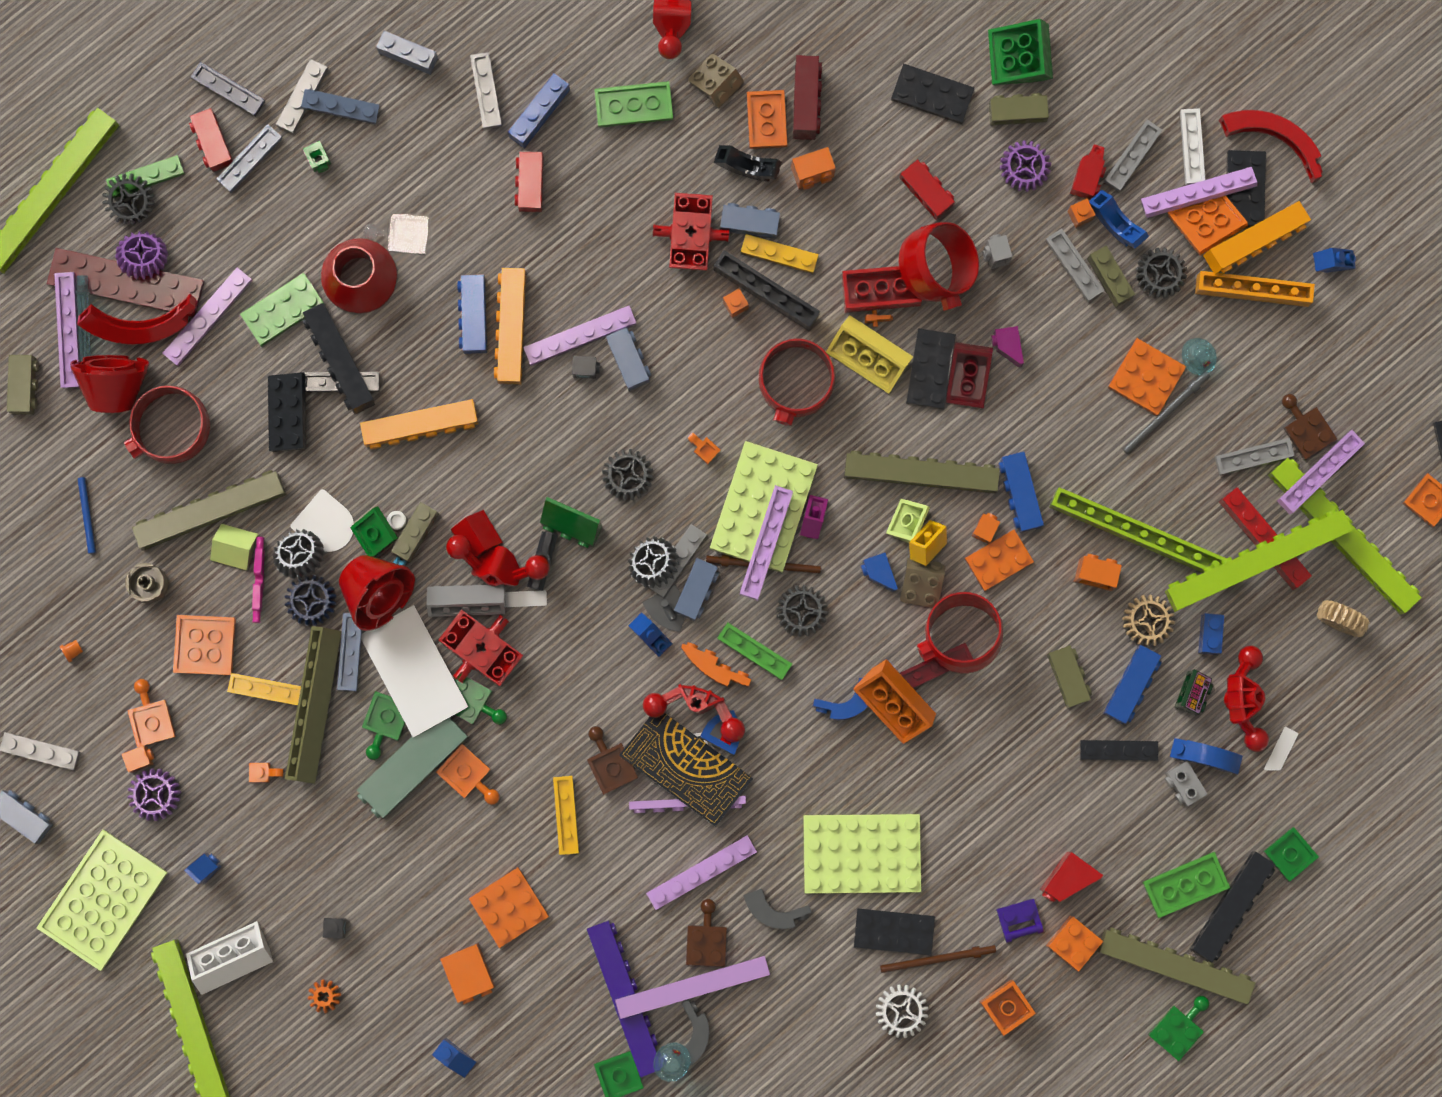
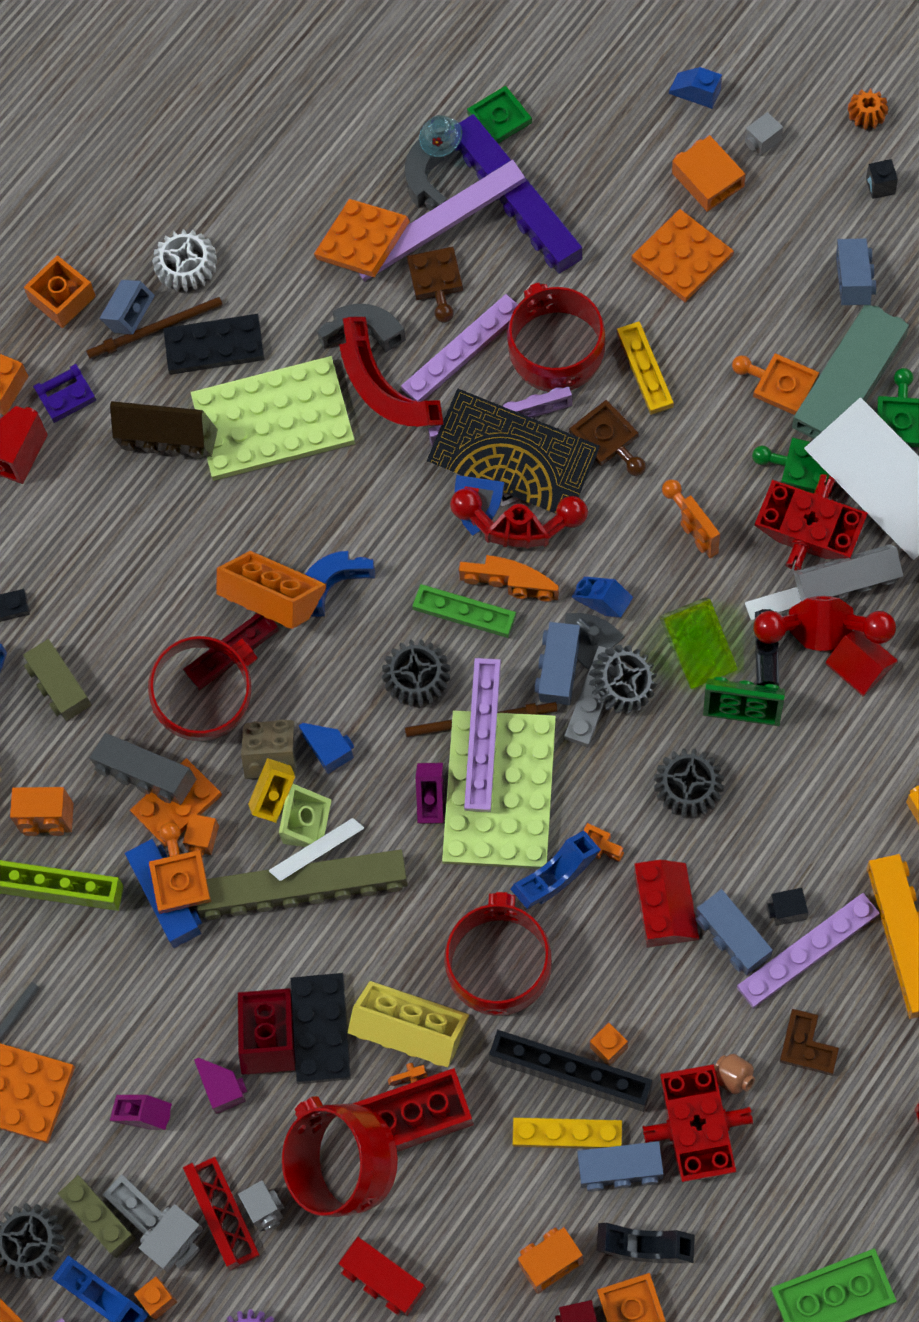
camera: 175 degrees right, 15 degrees down
(382, 847) = (855, 272): none -> sand blue brick
(414, 996) = (763, 134): none -> light grey brick
(575, 701) = (694, 519): none -> orange plate
(590, 580) = (698, 642): none -> clear neon green slope
(605, 267) = (800, 1048): none -> reddish brown plate
(629, 893) = (563, 300): none -> red cylinder
(656, 262) = (734, 1073): none -> nougat head
(668, 392) = (665, 902): none -> red slope
(742, 431) = (558, 872): none -> blue arch
(756, 991) = (361, 237): none -> orange plate
(776, 847) = (374, 388): none -> red arch
(905, 493) = (316, 849): none -> white sticker
(949, 857) = (162, 429): none -> dark brown slope
(956, 979) = (127, 307): none -> sand blue brick
(1008, 491) = (180, 878): none -> orange plate
(1018, 586) = (143, 769): none -> dark grey brick
(1033, 258) = (211, 1216): none -> red fence
(1063, 244) = (170, 1237): none -> light grey brick
(1067, 340) = (141, 1111): none -> magenta slope

